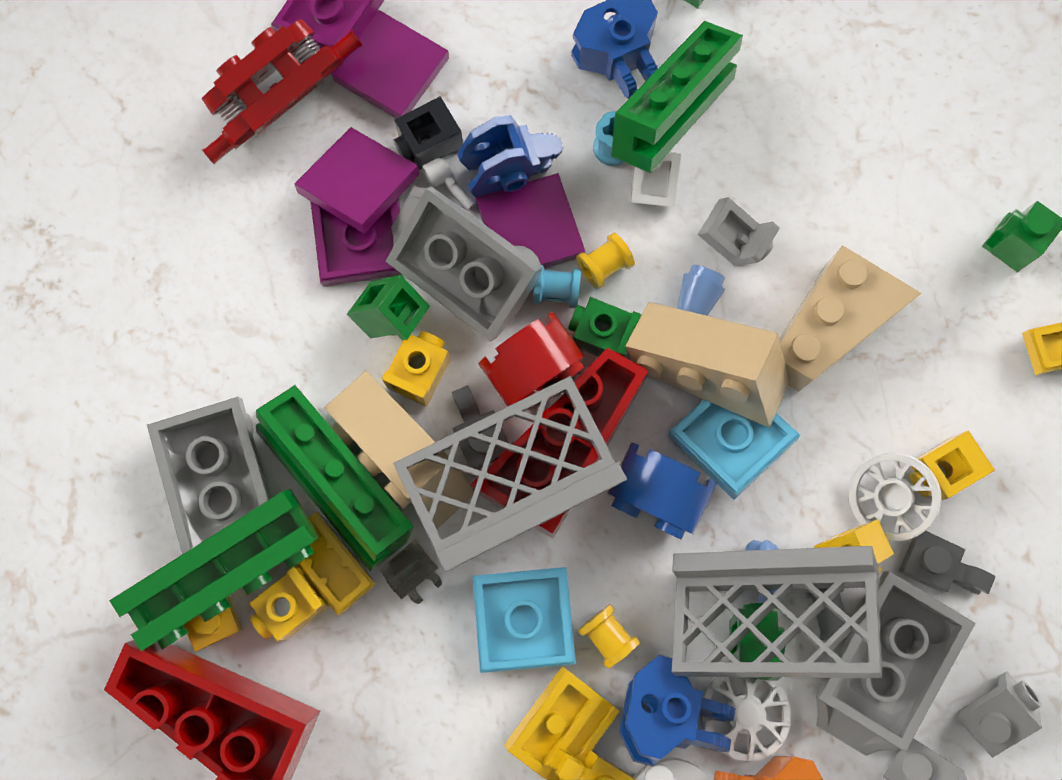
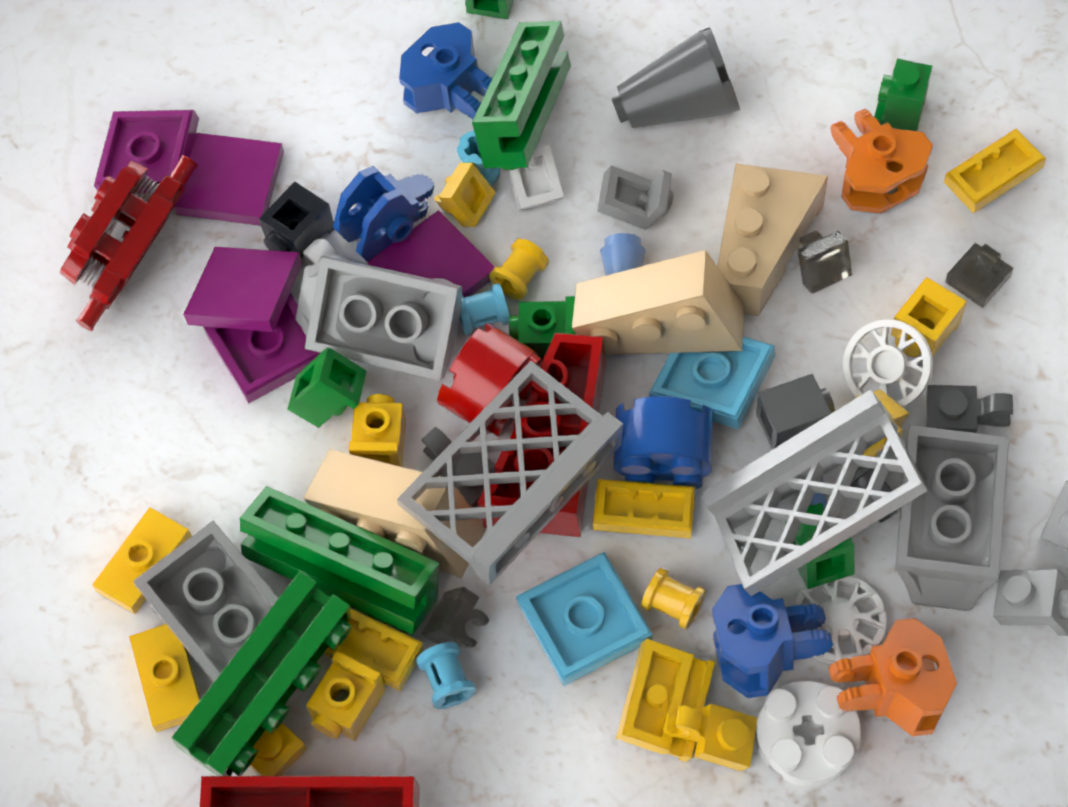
camera: 15 degrees left, 15 degrees down
(148, 520) = (165, 676): none -> yellow plate
(174, 393) = (144, 547): none -> yellow plate
(382, 622) = (446, 675): none -> medium azure bush
(588, 169) = (465, 195): none -> yellow tile
(619, 538) = (644, 508): none -> yellow plate
(791, 509) = (792, 408): none -> dark grey brick
(824, 142) = (678, 86): none -> dark grey cone
(880, 367) = (823, 260): none -> clear smoke tile
(974, 297) = (880, 162): none -> orange hinge
(1015, 438) = (979, 274): none -> clear smoke tile

